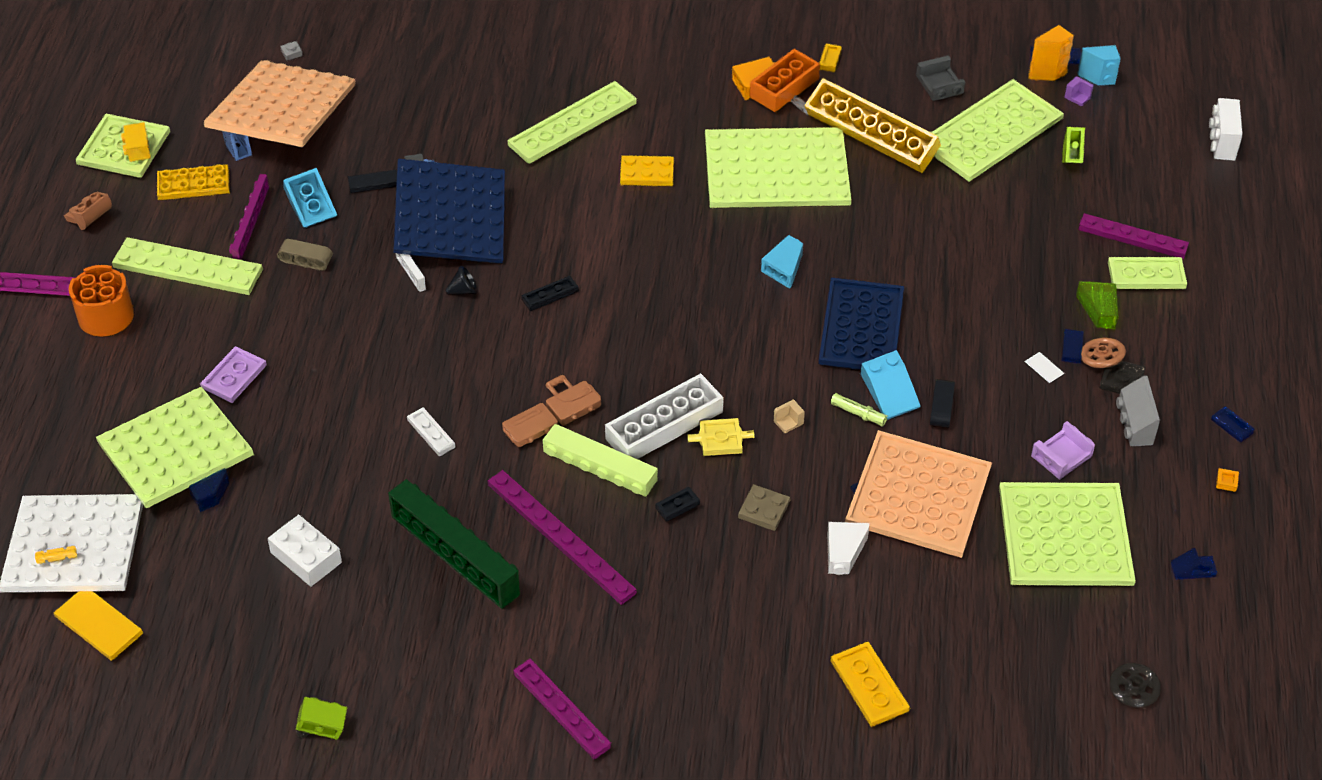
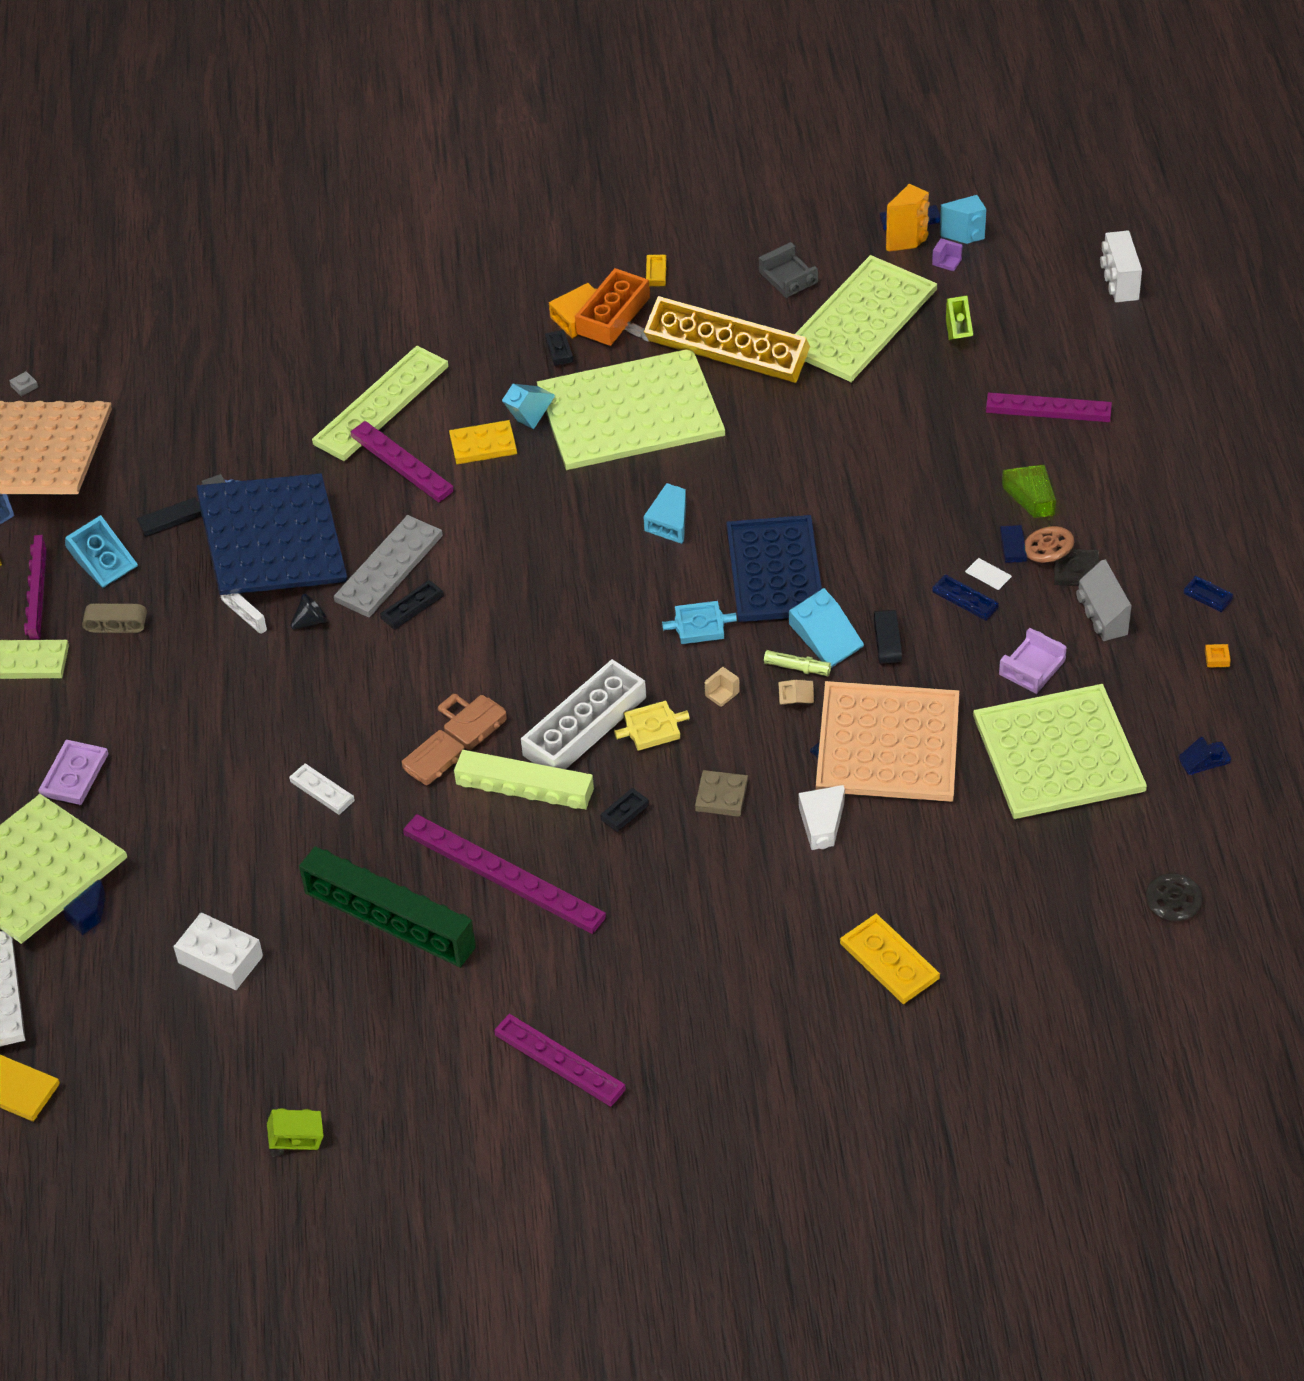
camera: 10 degrees left, 0 degrees up
(539, 257) = (388, 566): none -> light grey plate
(575, 173) = (402, 461): none -> magenta plate
(691, 145) = (527, 403): none -> medium azure slope
(731, 105) = (558, 347): none -> black plate
(785, 357) = (699, 622): none -> medium azure plate
(851, 434) = (796, 692): none -> tan panel
(1019, 383) = (965, 597): none -> clear blue tile
(1147, 272) = (1074, 445): yellowish green plate -> none

